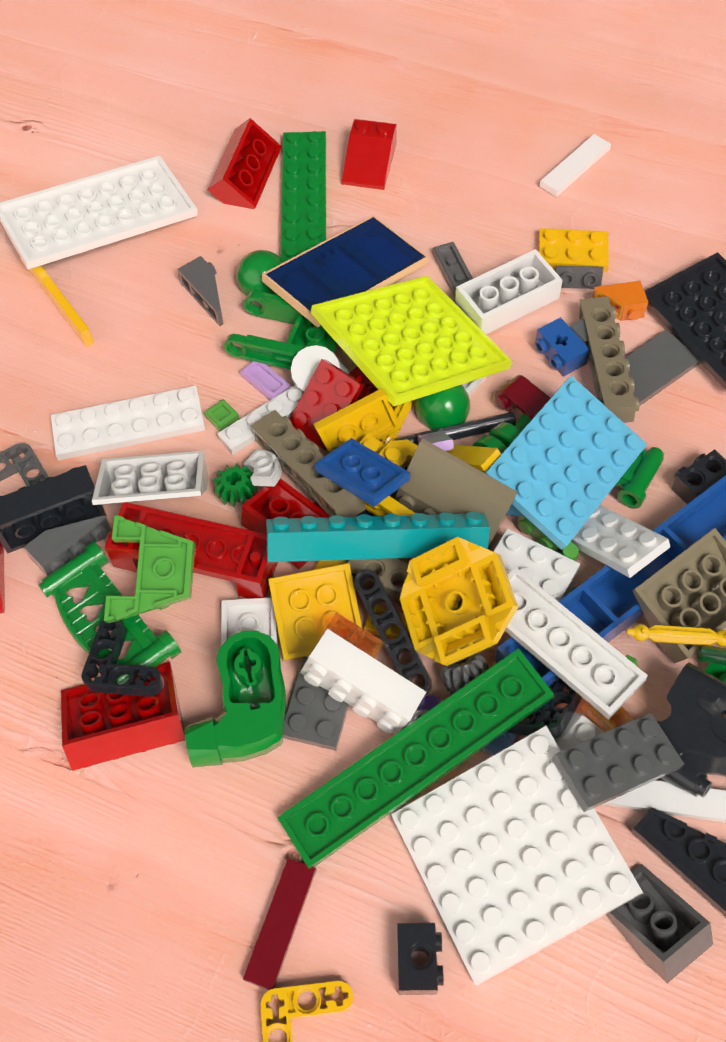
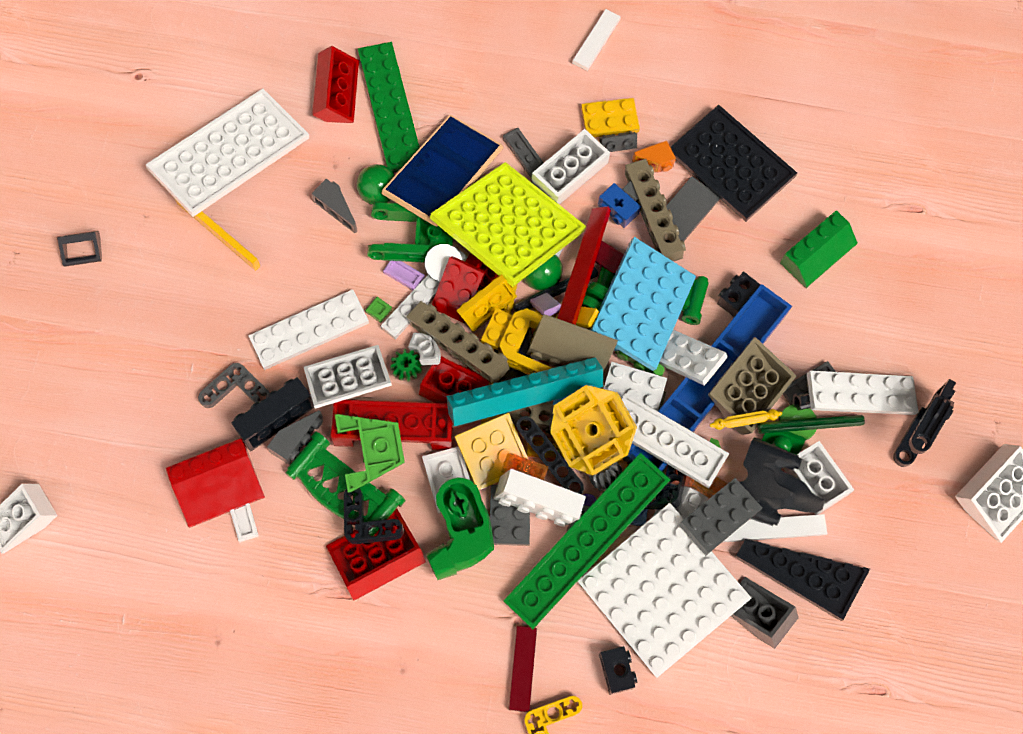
camera: 20 degrees left, 10 degrees up
(362, 472) = (503, 343): blue tile -> none
(369, 154) = (433, 58): red slope -> none
(497, 401) = (584, 265): none -> red tile

